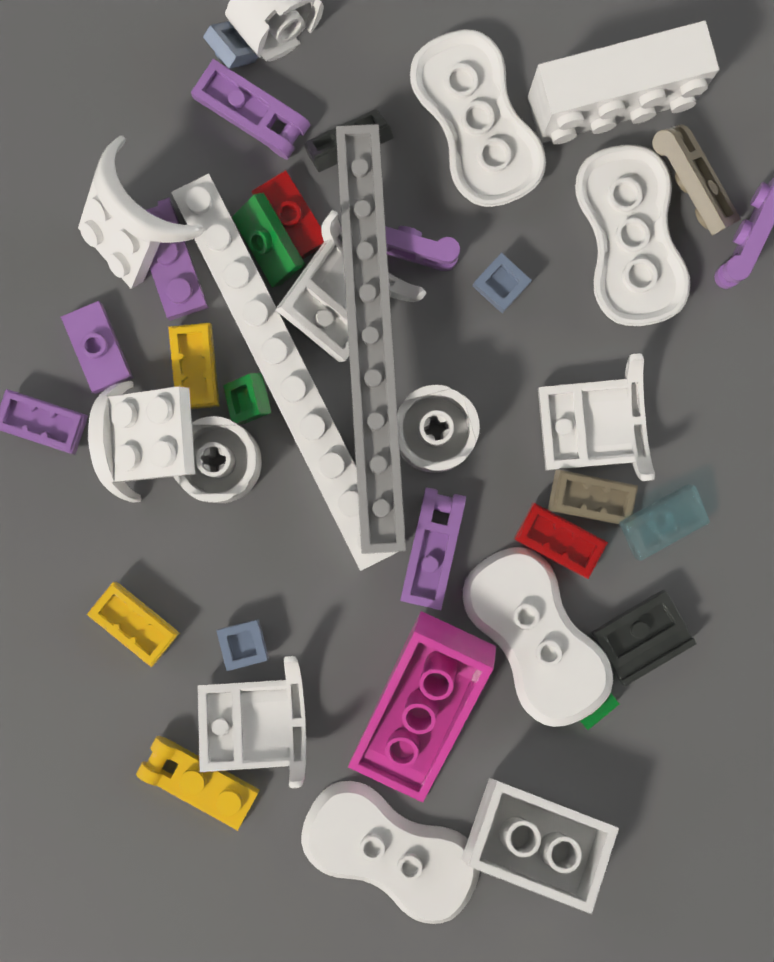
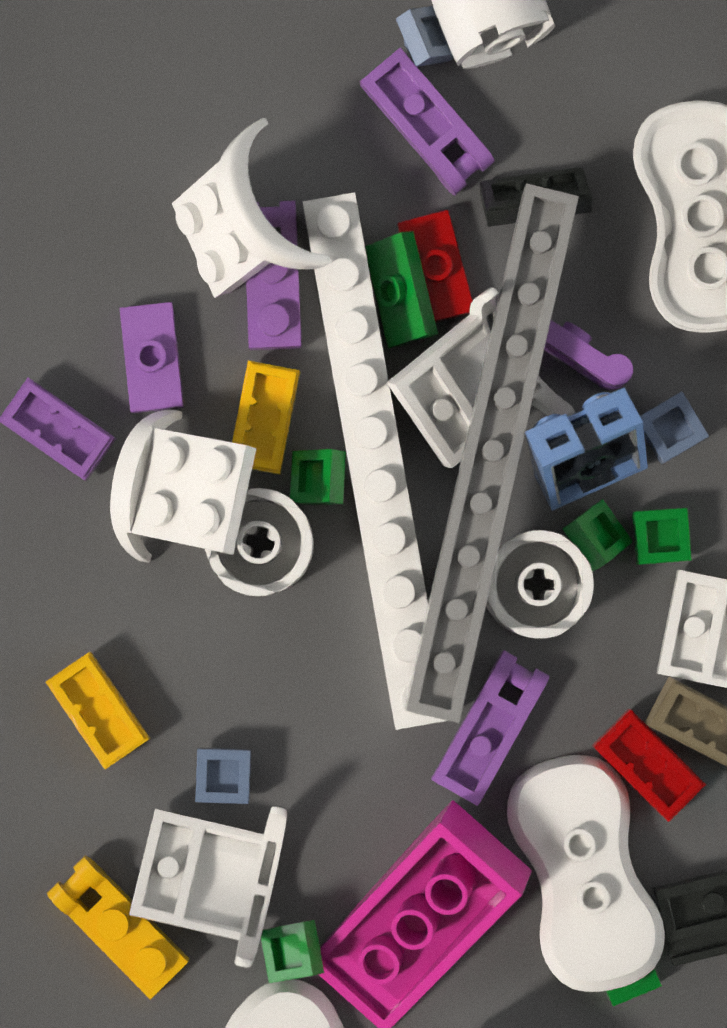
camera: 15 degrees right, 0 degrees up
(333, 762) = (292, 951): none -> green plate
(442, 314) = (588, 448): none -> medium blue piece
(470, 379) = (598, 534): none -> green plate
(518, 366) = (661, 536): none -> green plate

